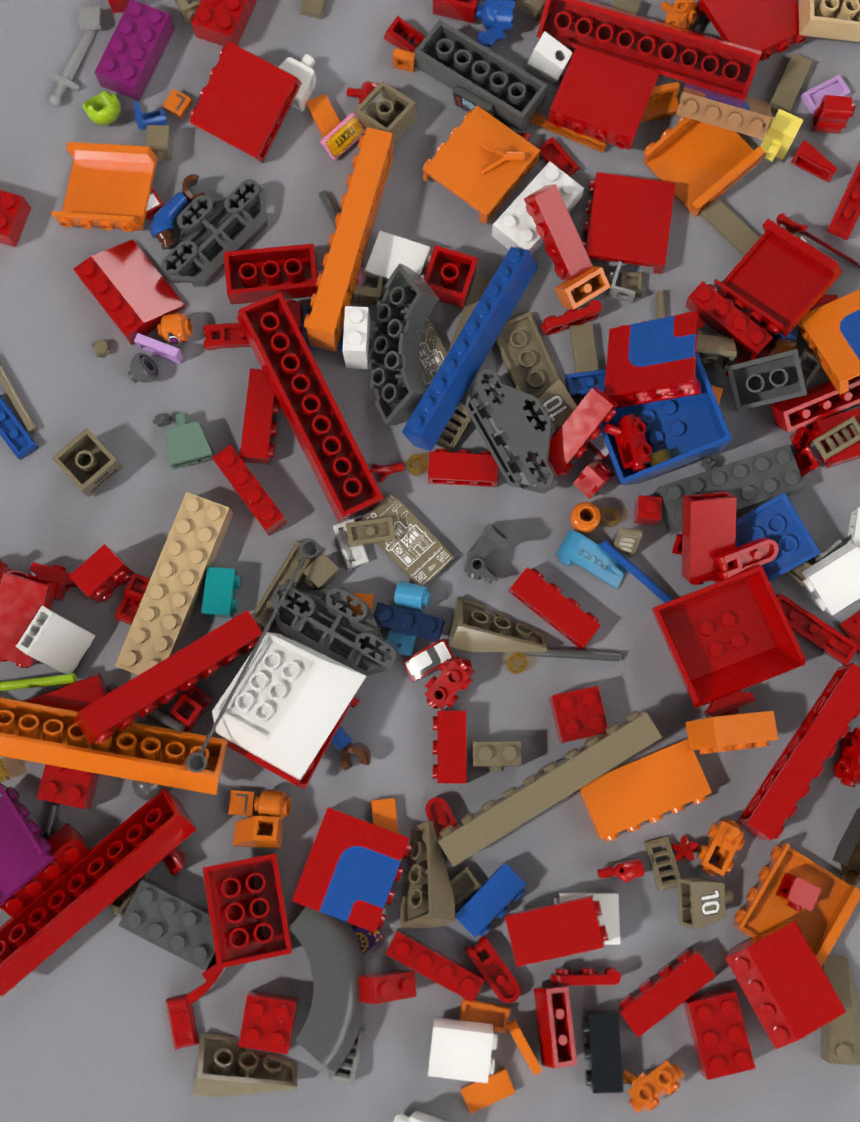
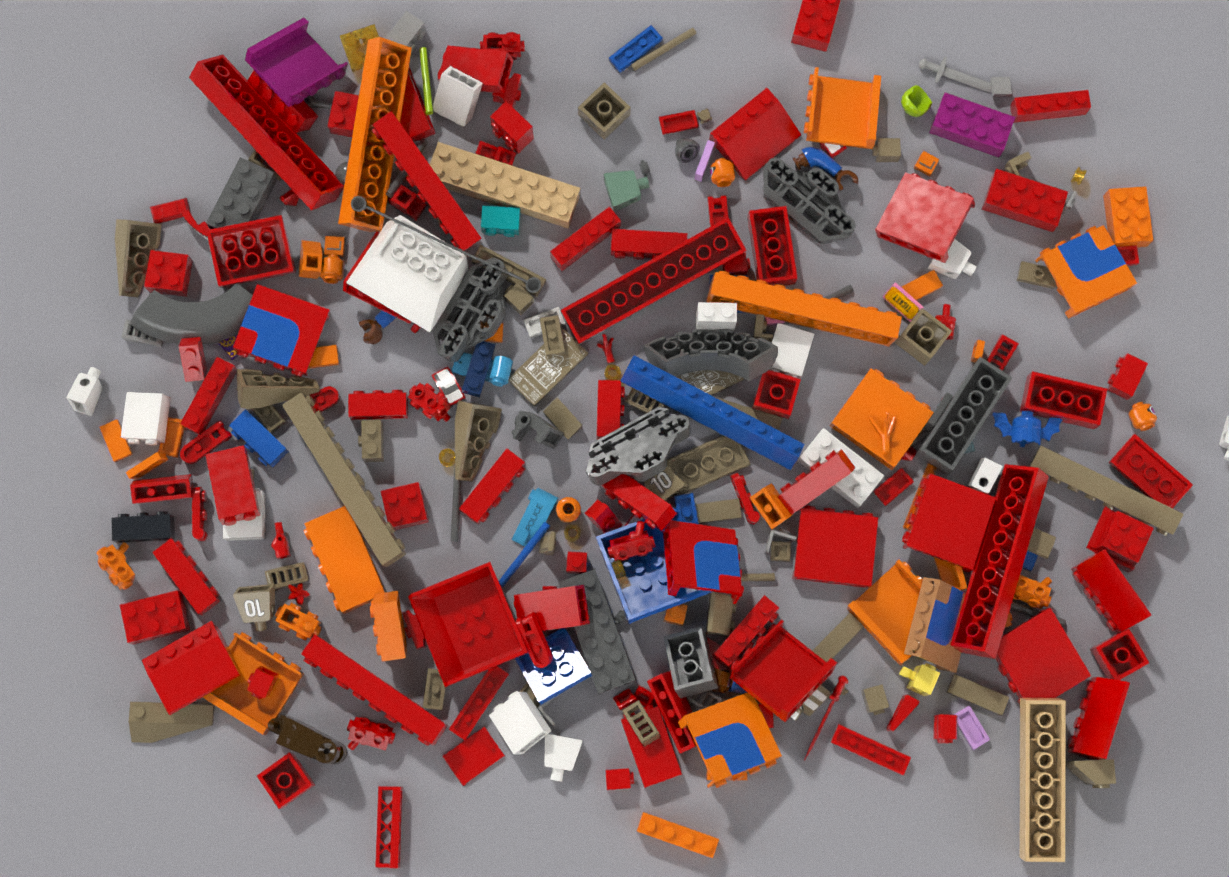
camera: 85 degrees right, 0 degrees up
(107, 378) = (678, 122): none -> red tile
(155, 117) = (909, 142): blue plate -> none
(470, 524) = (562, 418): none -> dark tan slope
(799, 189) = (875, 699): none -> dark tan brick
(800, 682) = (434, 690): none -> dark tan plate

